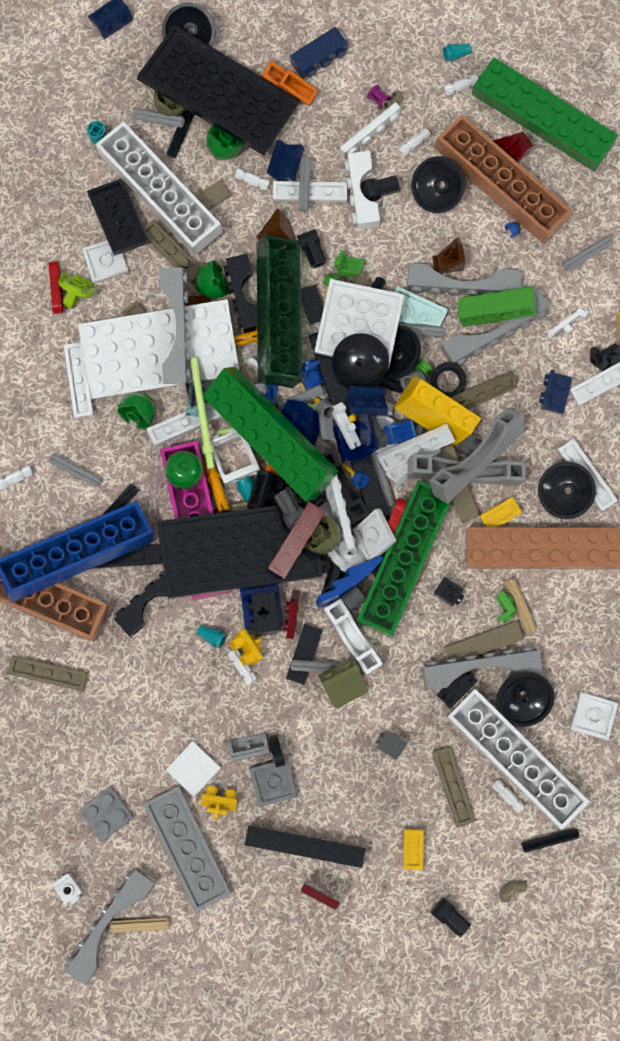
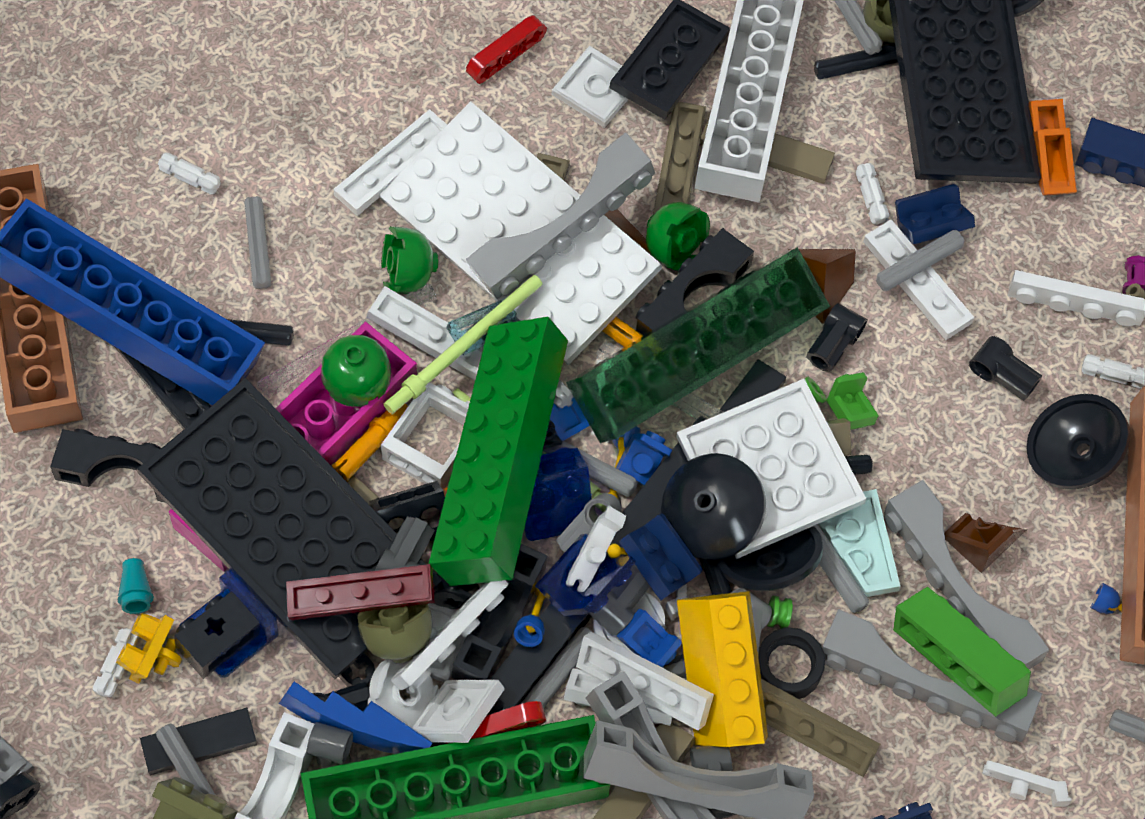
camera: 50 degrees right, 15 degrees down
(75, 287) = (521, 70): lime tile -> none
(222, 145) = (885, 117): green cylinder -> none
(245, 487) = (400, 480): teal cone -> none
(292, 609) = (246, 677): dark red wing -> none
(359, 168) = (951, 373): white arch -> none

